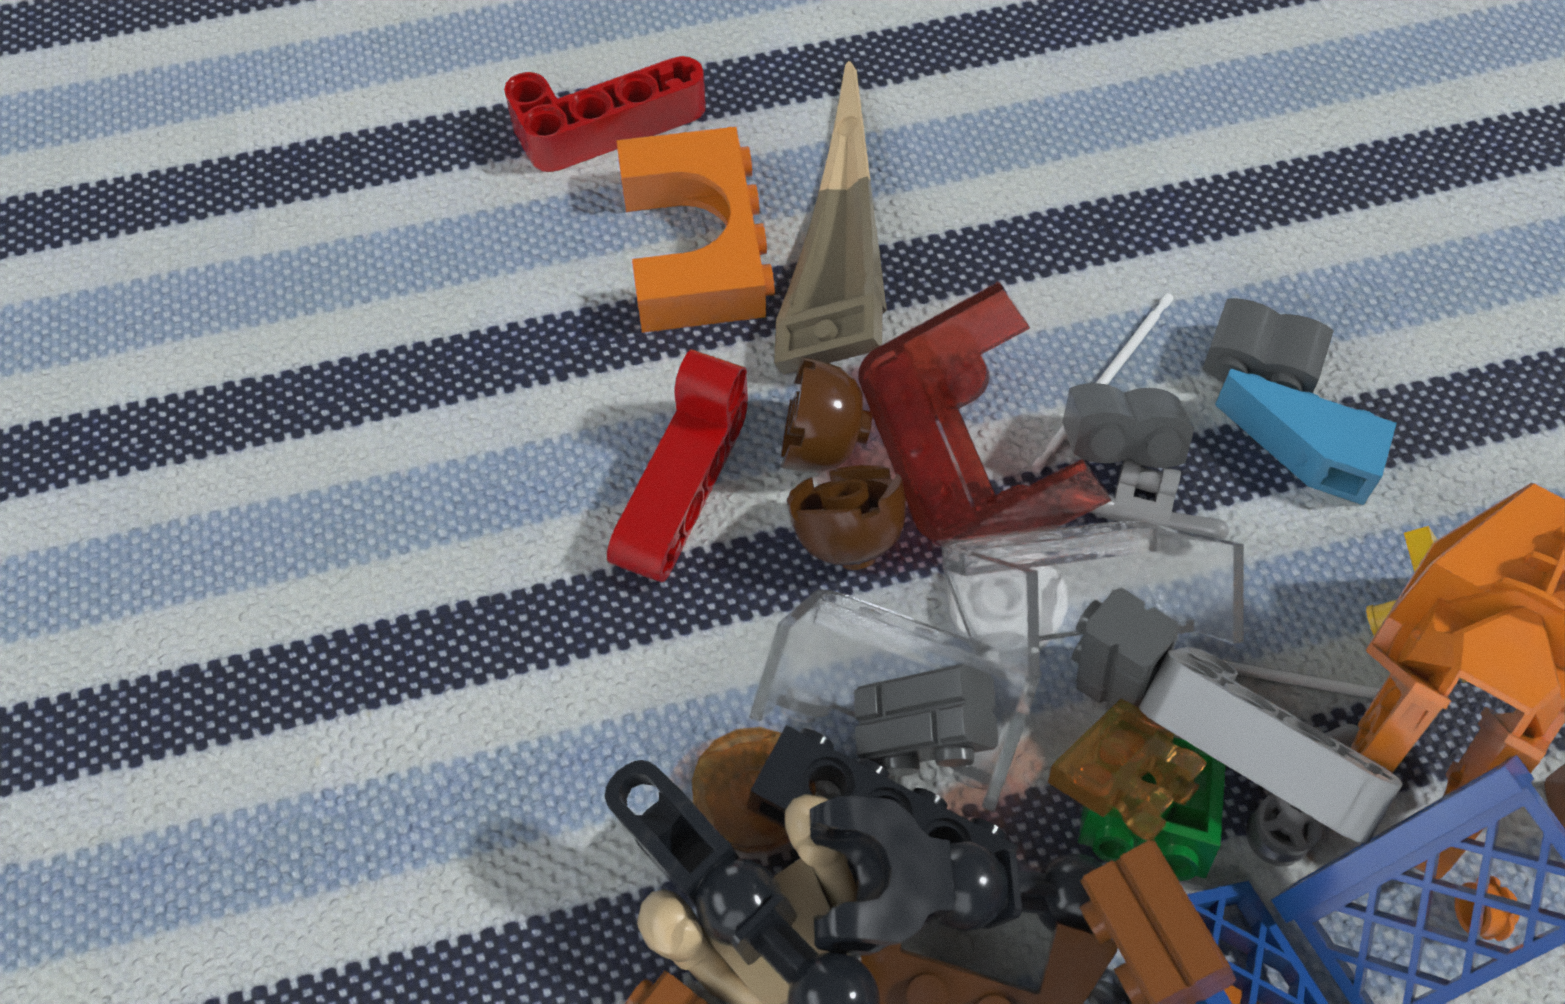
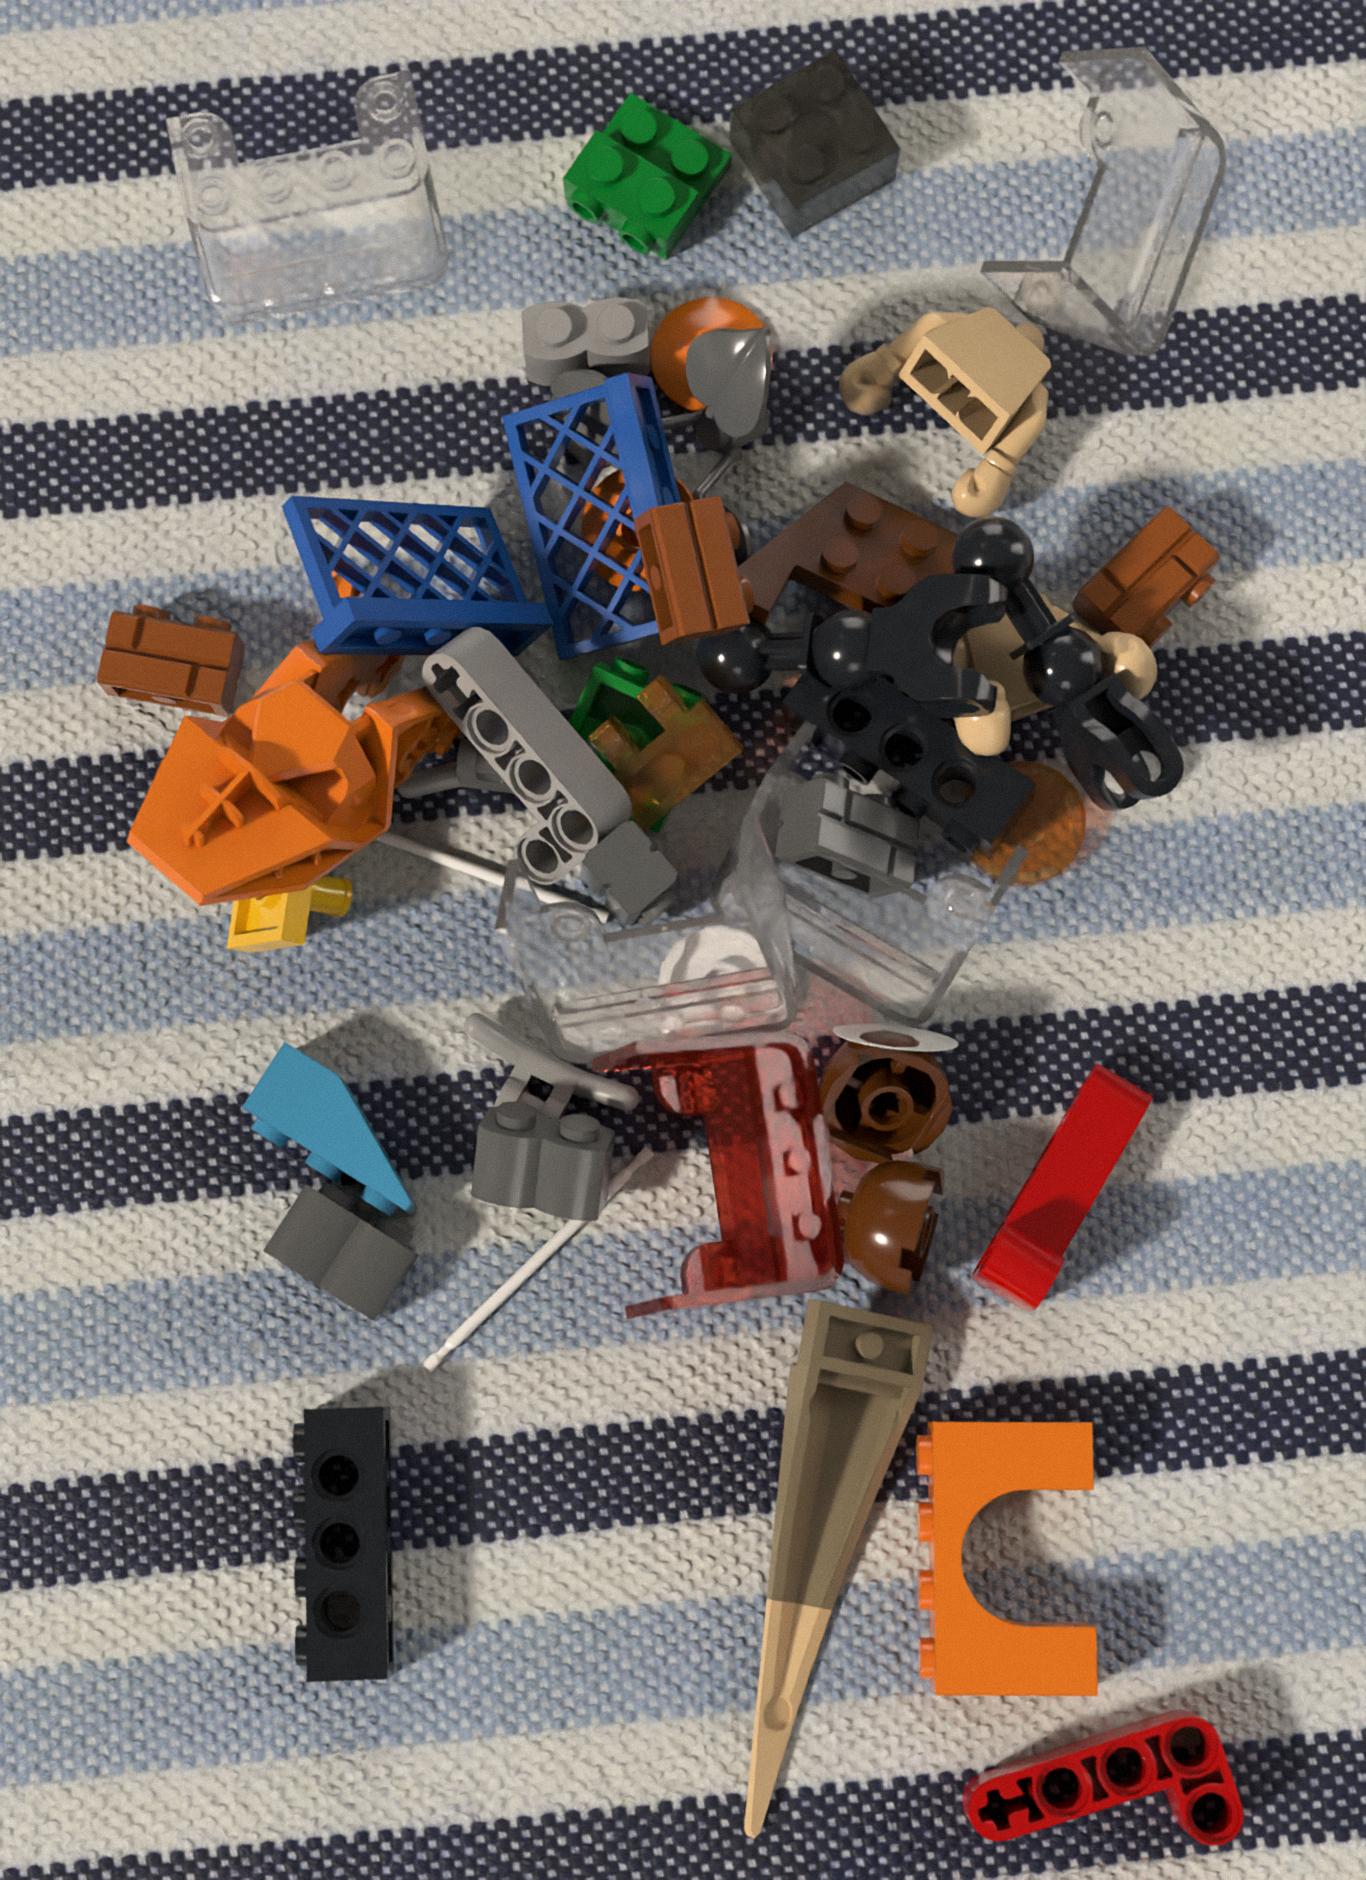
camera: 170 degrees left, 20 degrees up
(817, 571) = (928, 1040): none -> white sticker
(1192, 175) = (322, 1646): none -> black brick

